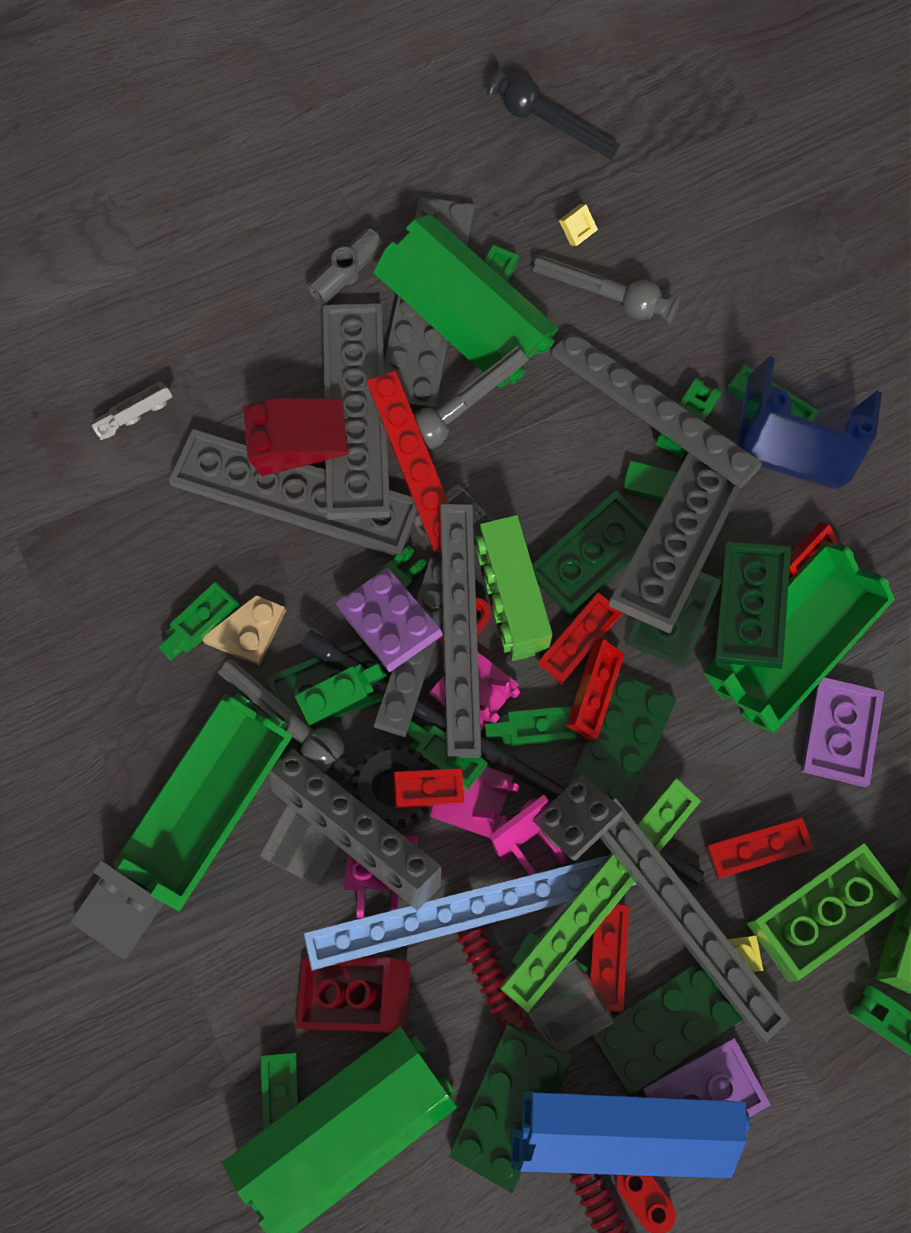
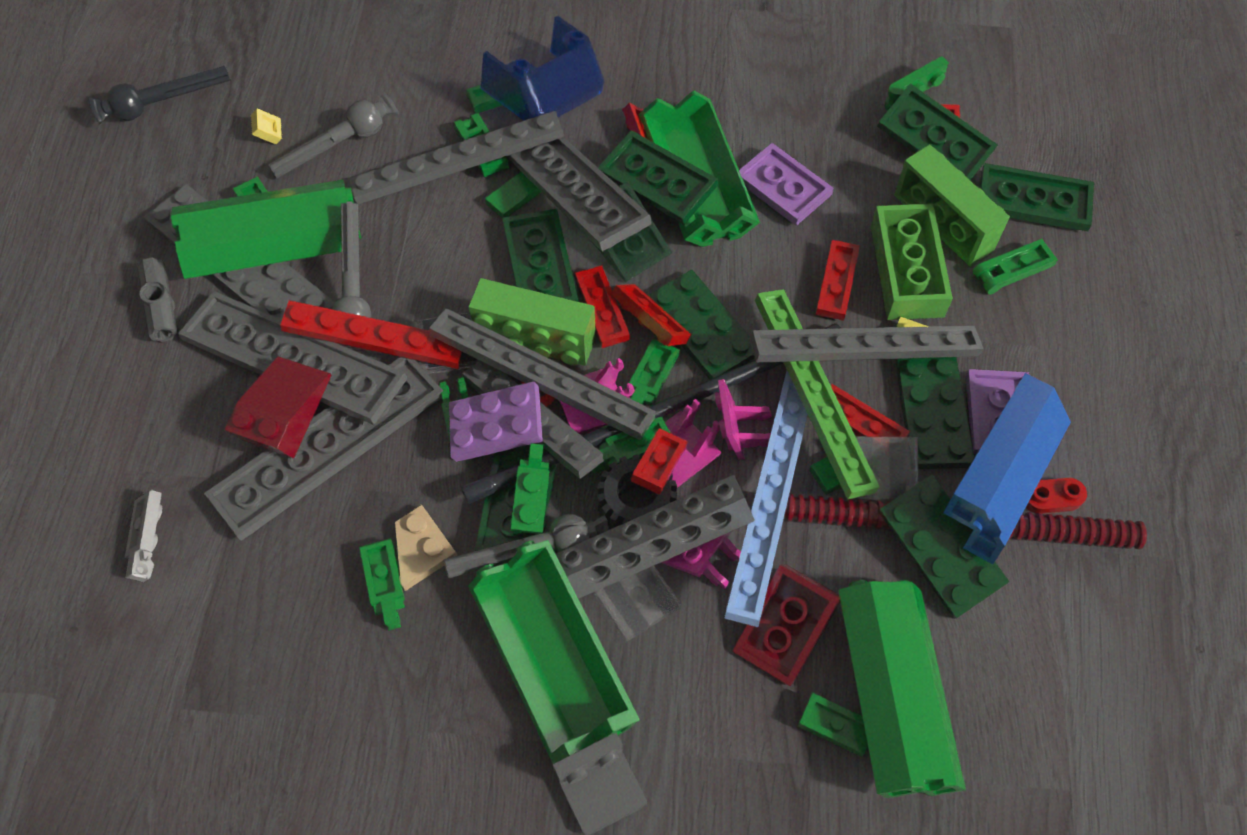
camera: 60 degrees left, 10 degrees down
(578, 817) = (752, 365): dark grey bracket -> none

